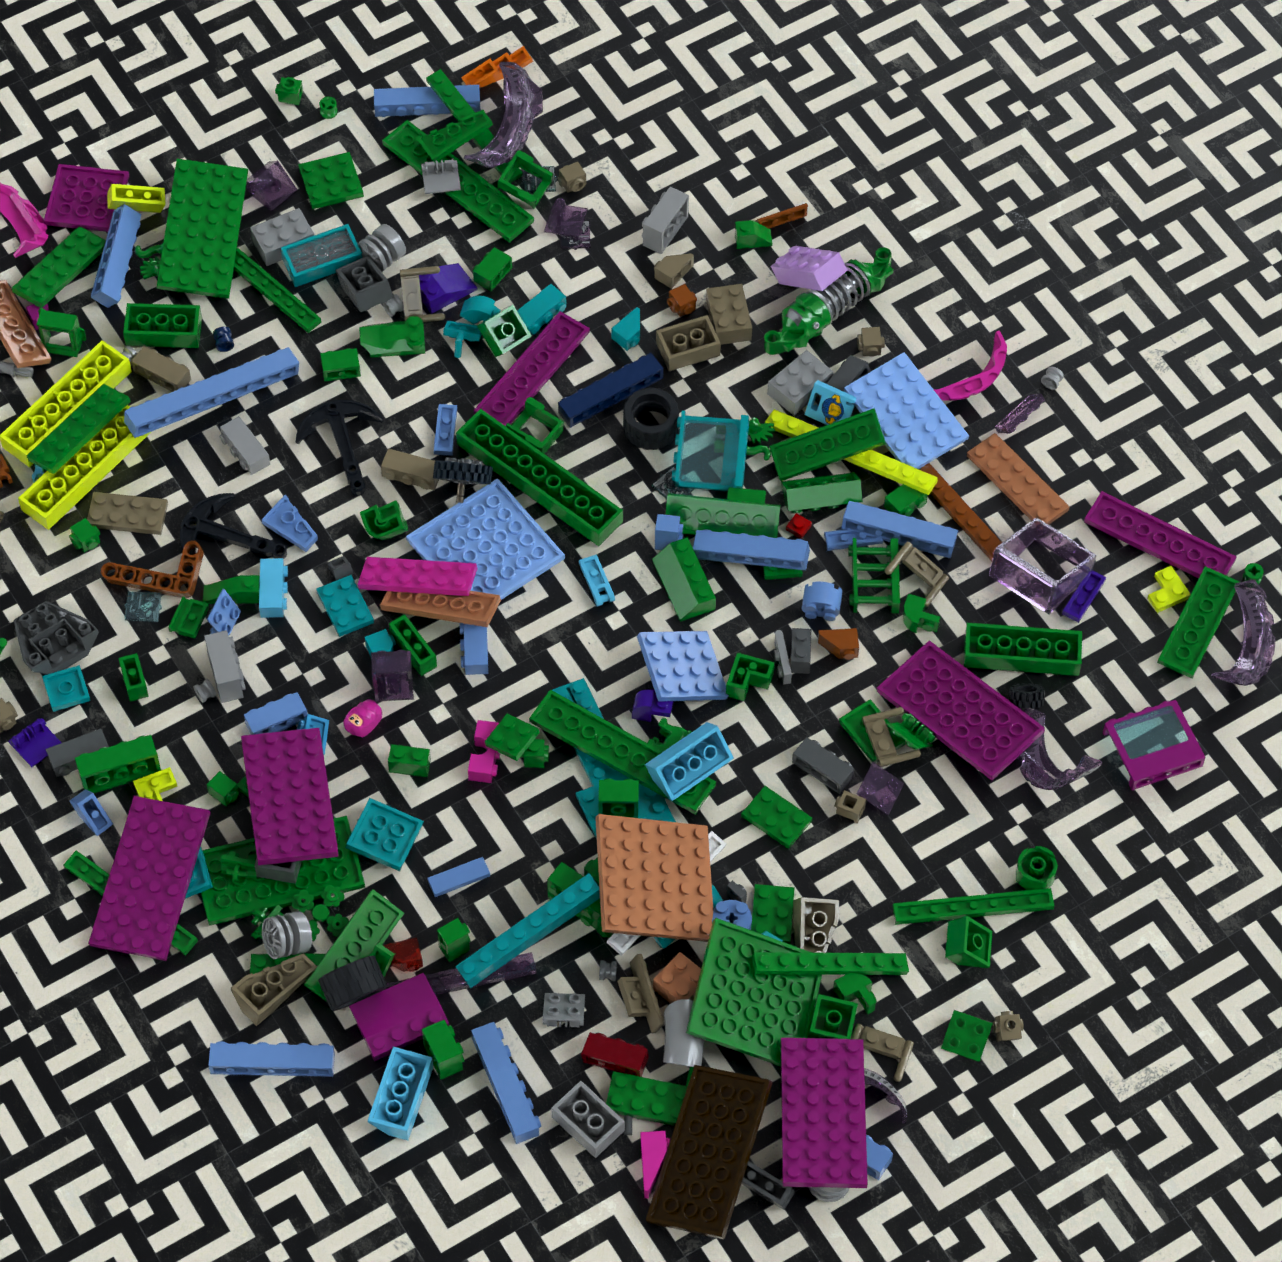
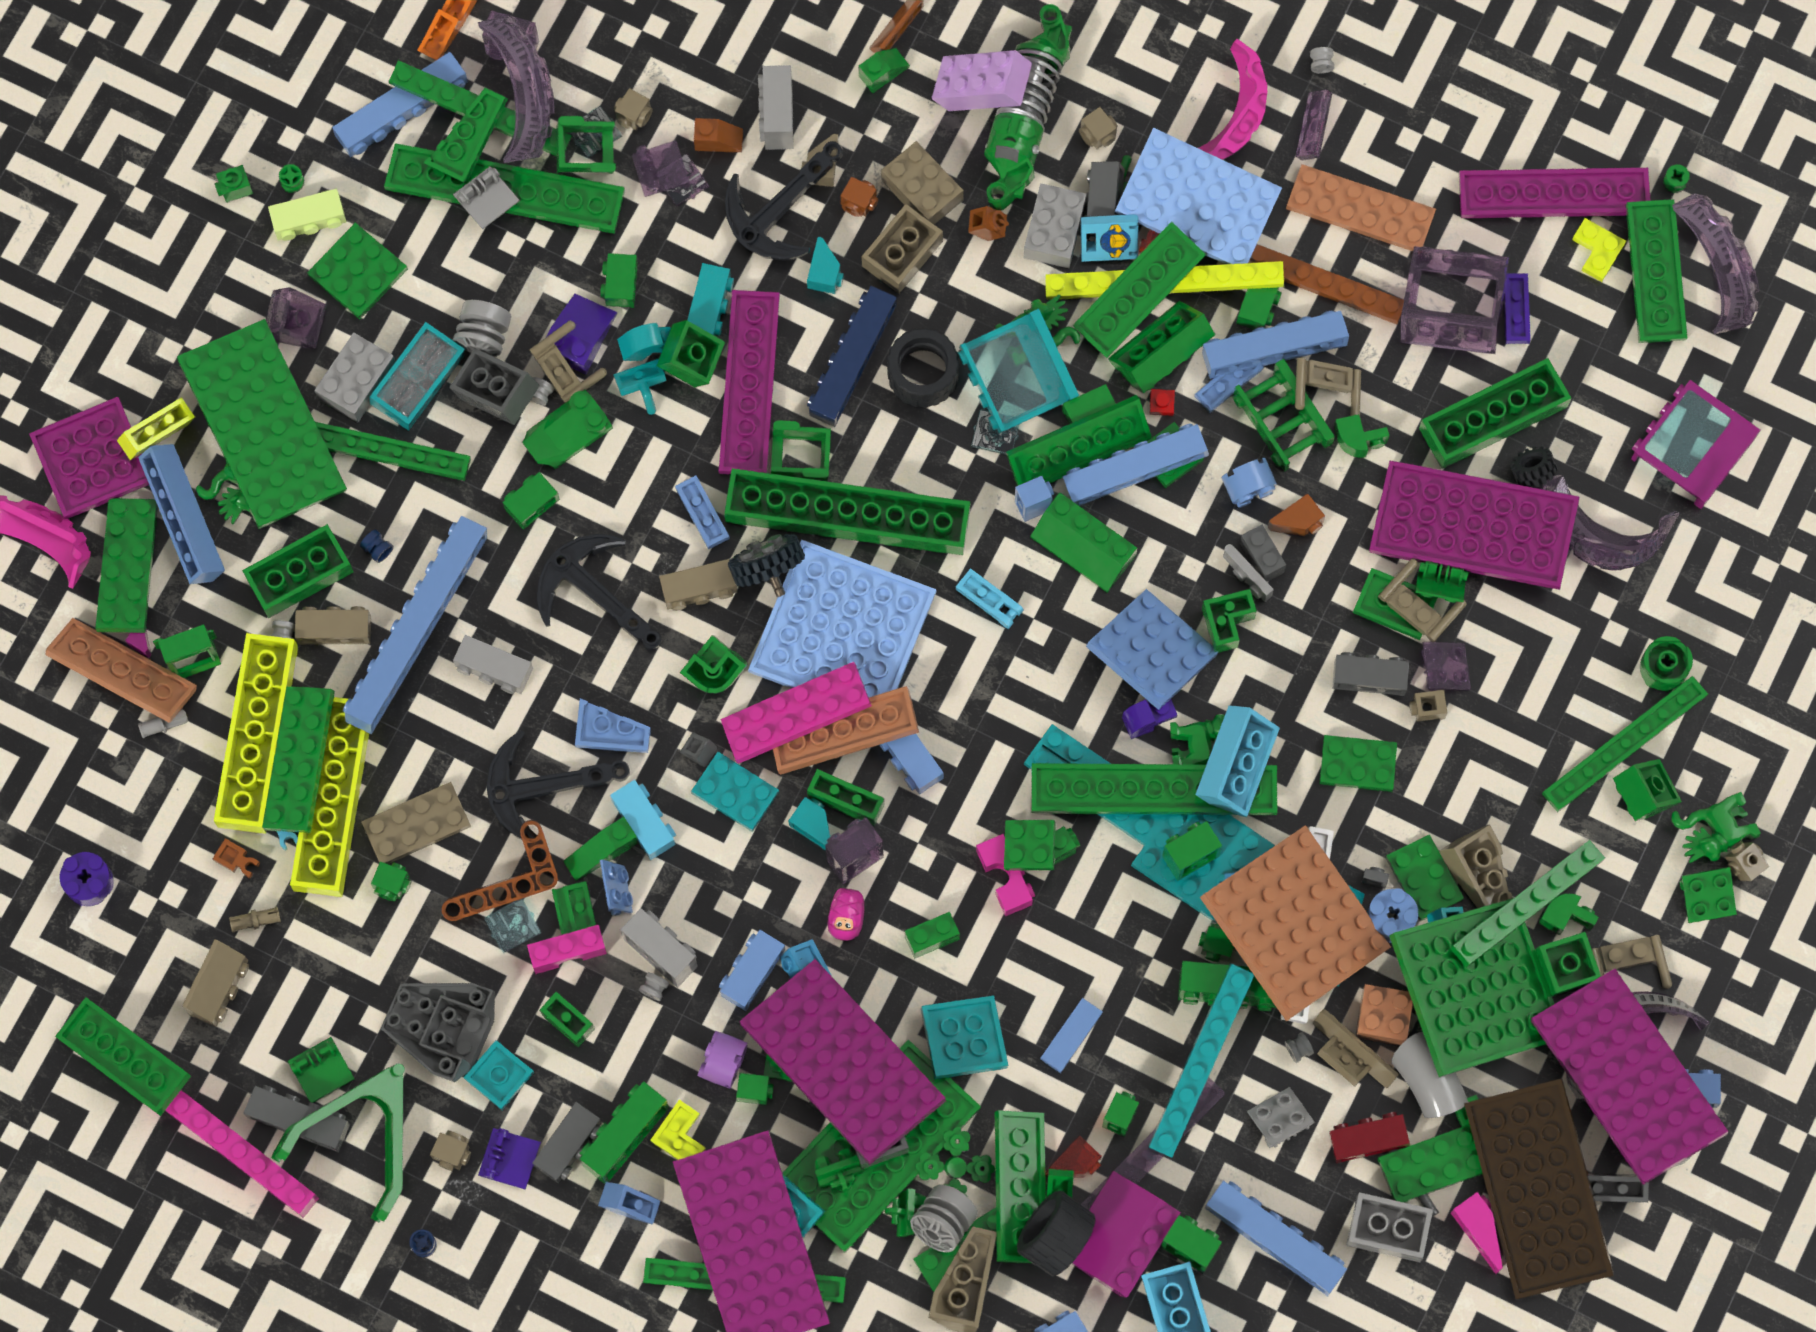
camera: 30 degrees left, 15 degrees up
(178, 638) = (578, 944): none -> dark pink arch
(215, 756) = (723, 1059): none -> medium lavender brick
(322, 131) = (307, 215): none -> yellowish green brick
(598, 284) = (770, 214): none -> black piece
(615, 219) = (717, 136): none -> dark orange slope
(755, 357) = (987, 223): none -> dark orange brick
(1008, 992) = (1722, 824): none -> green animal

